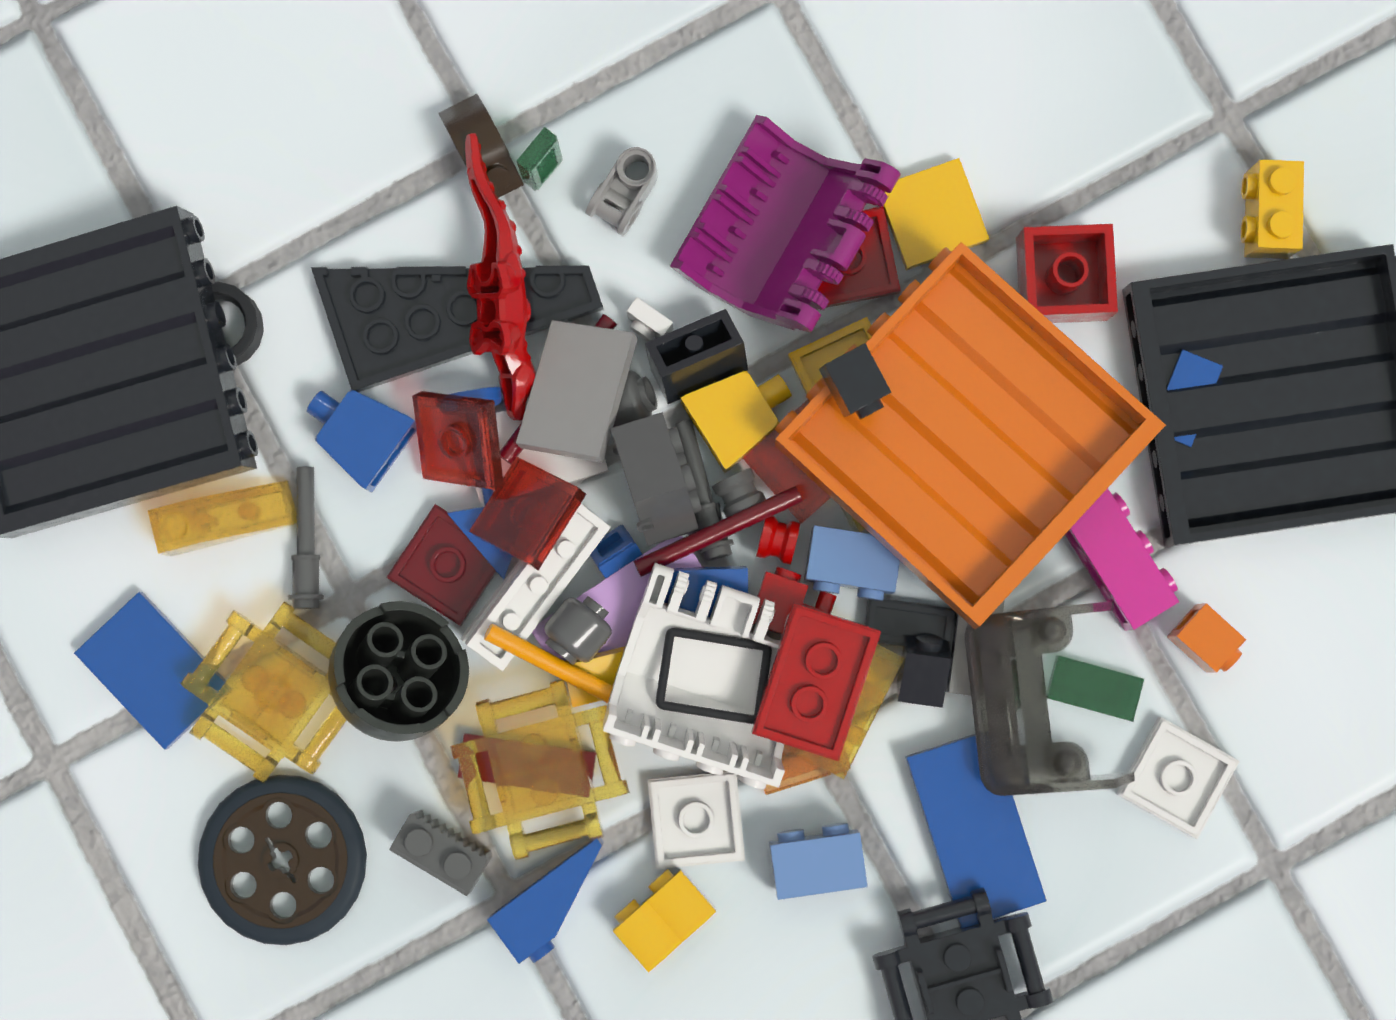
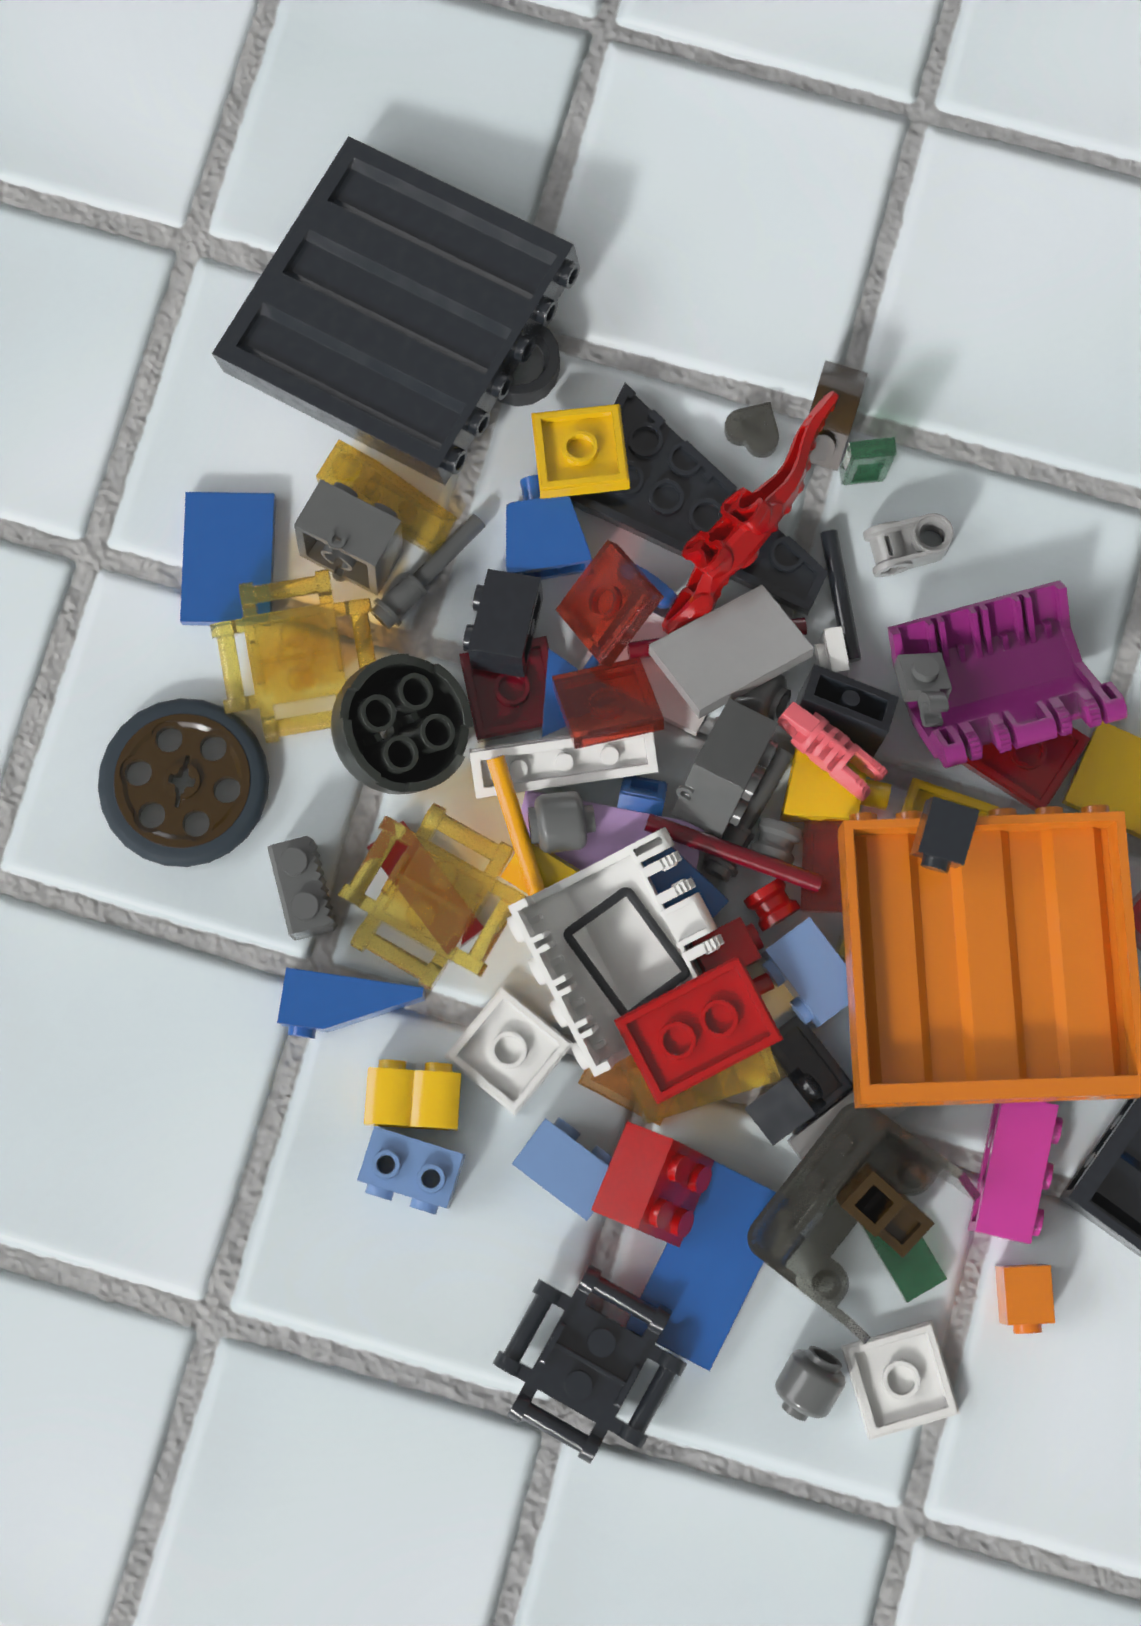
camera: 45 degrees right, 5 degrees down
(219, 572) = (349, 535): none -> dark grey brick
(329, 350) = (580, 451): none -> yellow tile
(397, 525) = (504, 622): none -> black brick
(434, 211) = (754, 429): none -> clear smoke tile
(611, 271) = (840, 592): none -> black bar
(711, 969) = (410, 1169): none -> medium blue brick
(715, 394) = (830, 749): none -> coral hinge
(733, 280) = (926, 681): none -> dark grey plate
(888, 817) = (653, 1184): none -> red brick
(1059, 677) = (884, 1209): none -> dark brown brick
(1122, 842) = (810, 1383): none -> dark grey head

